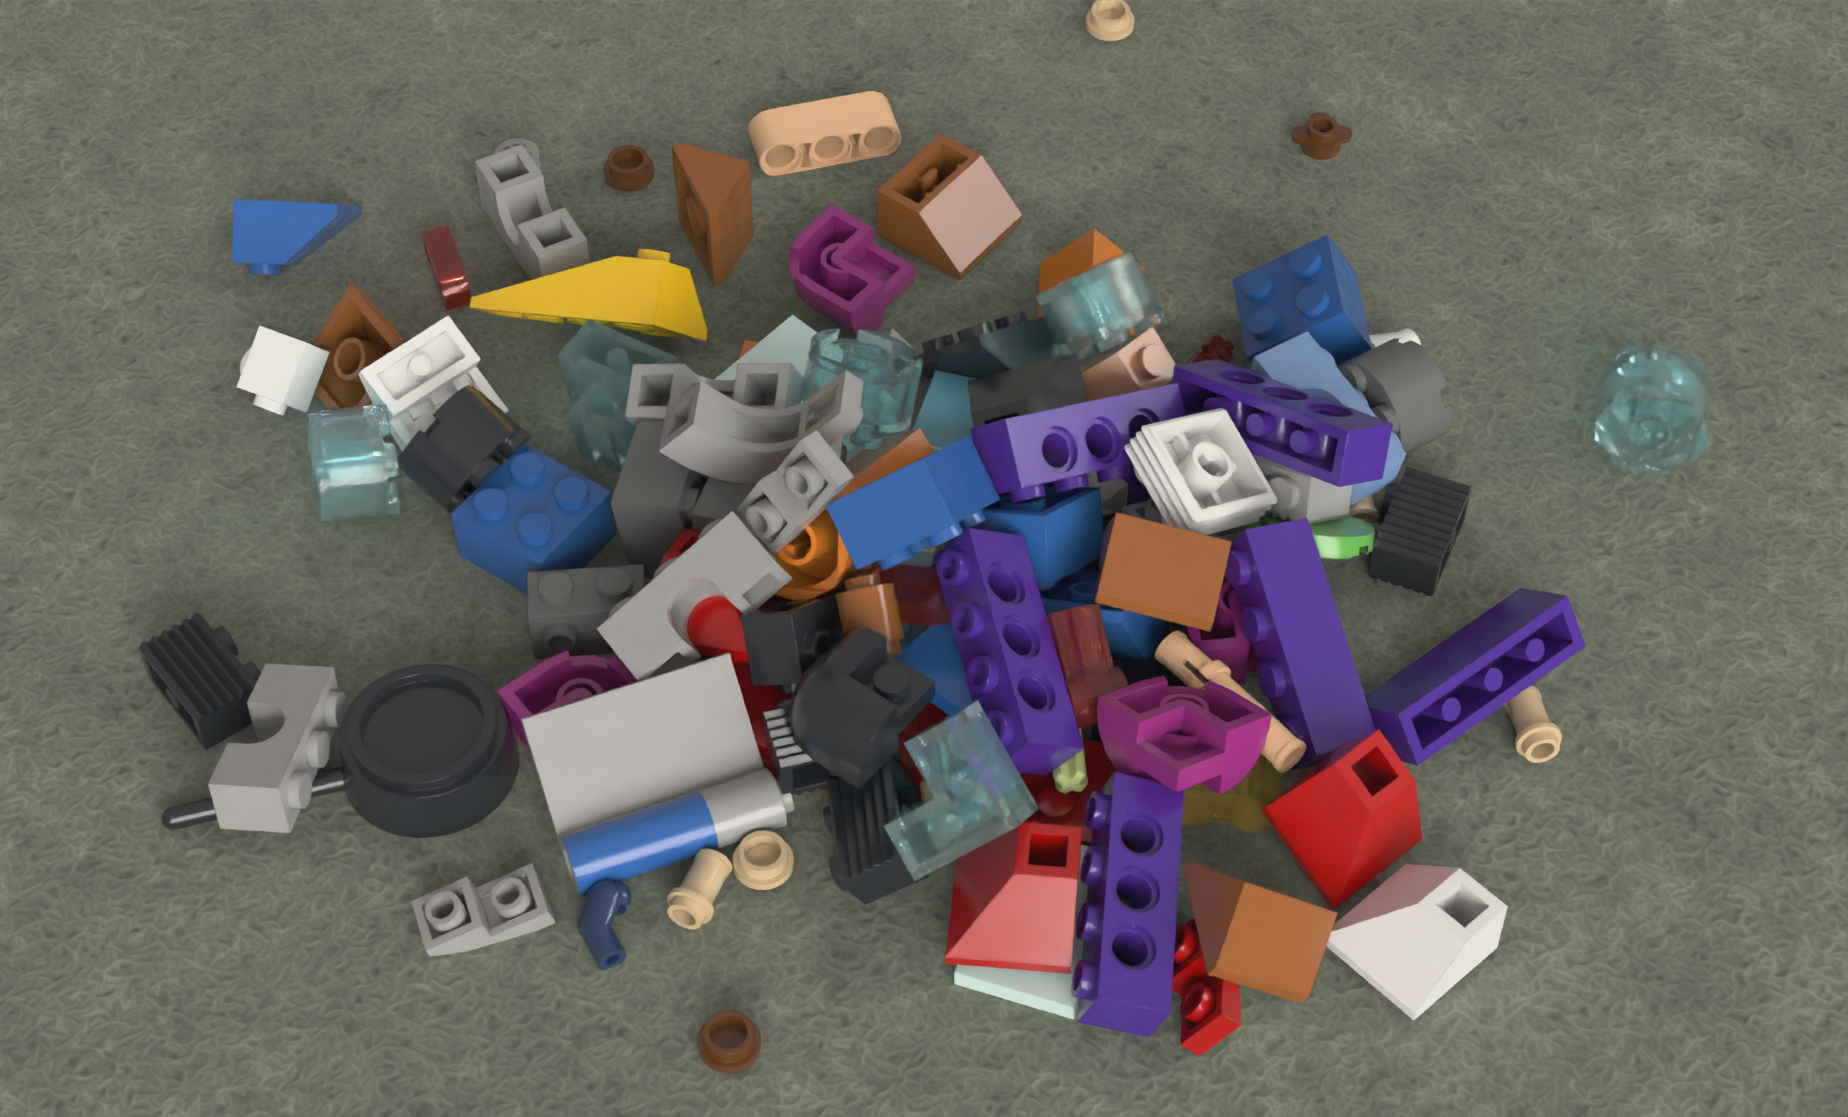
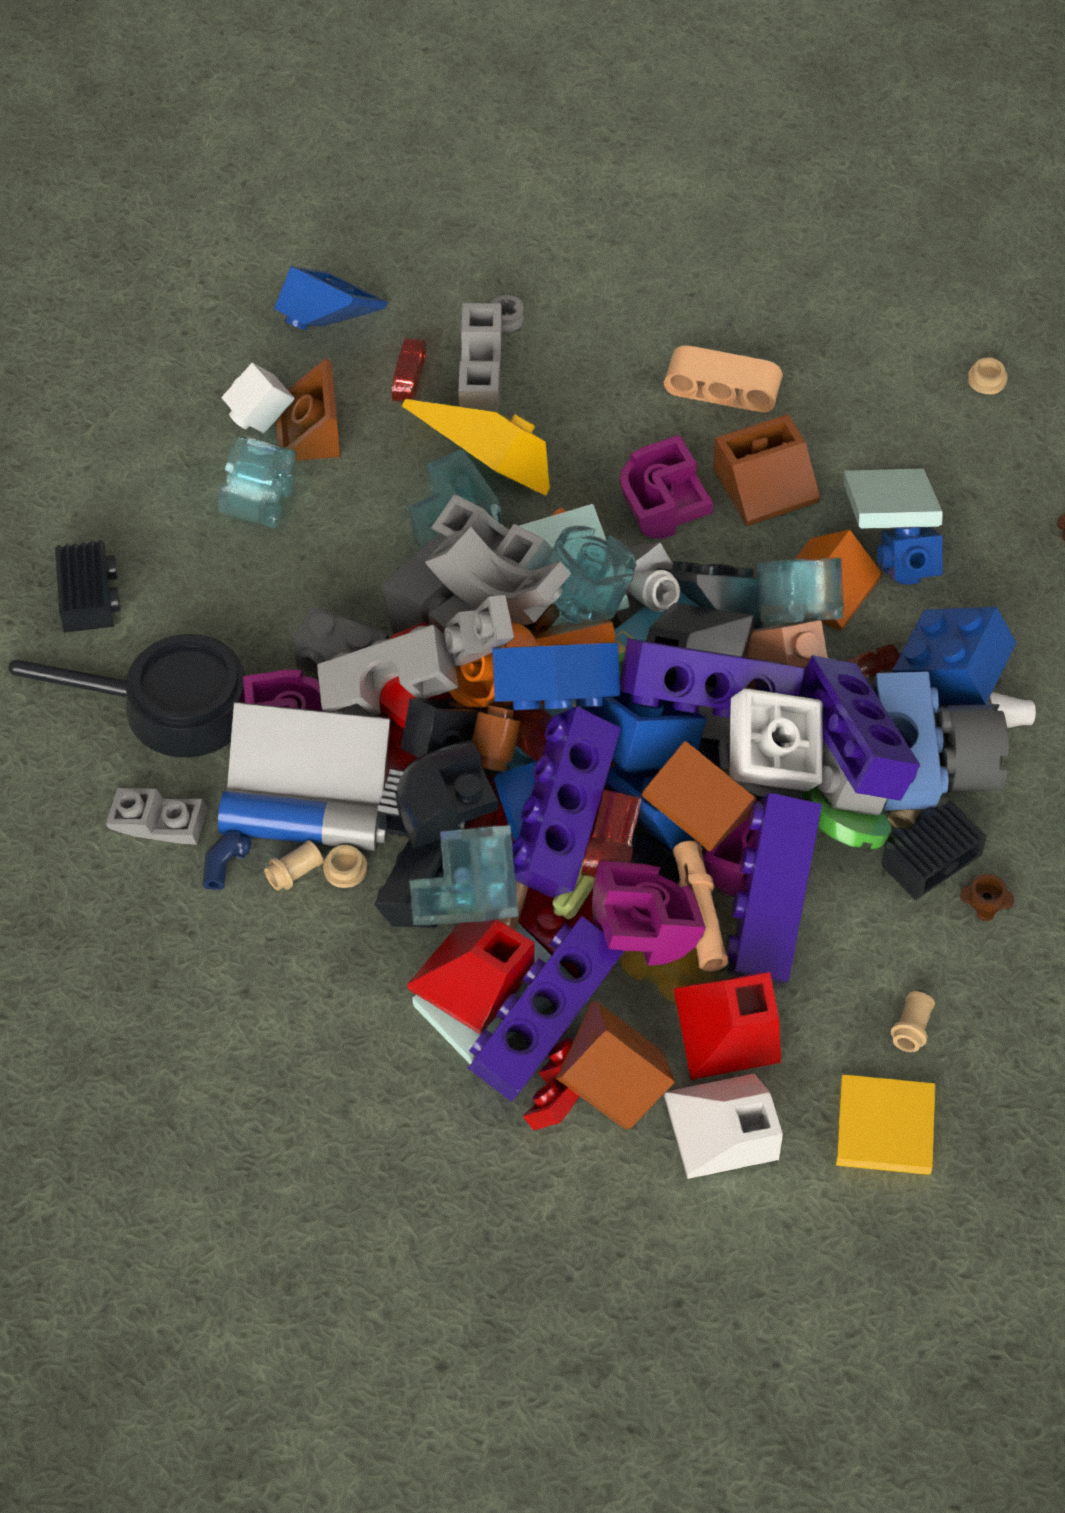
camera: 30 degrees right, 5 degrees up
(293, 722) = (76, 670): light grey arch -> none
(423, 377) = (337, 456): white slope -> none
(461, 447) = (327, 504): black brick -> none
(533, 519) = (345, 570): blue brick -> none
(628, 168) = (575, 349): reddish brown plate -> none
(714, 206) = (604, 405): dark orange slope -> none
(729, 1041) = (247, 972): reddish brown plate -> none
(939, 378) = (654, 589): none -> white cone
(1111, 179) = (892, 498): none -> light aqua tile
(1170, 229) = (910, 553): none -> blue brick
(1474, 672) = (888, 967): dark purple brick -> none
(1509, 542) = (987, 885): none -> reddish brown plate
(1582, 850) = (886, 1124): none -> yellow tile

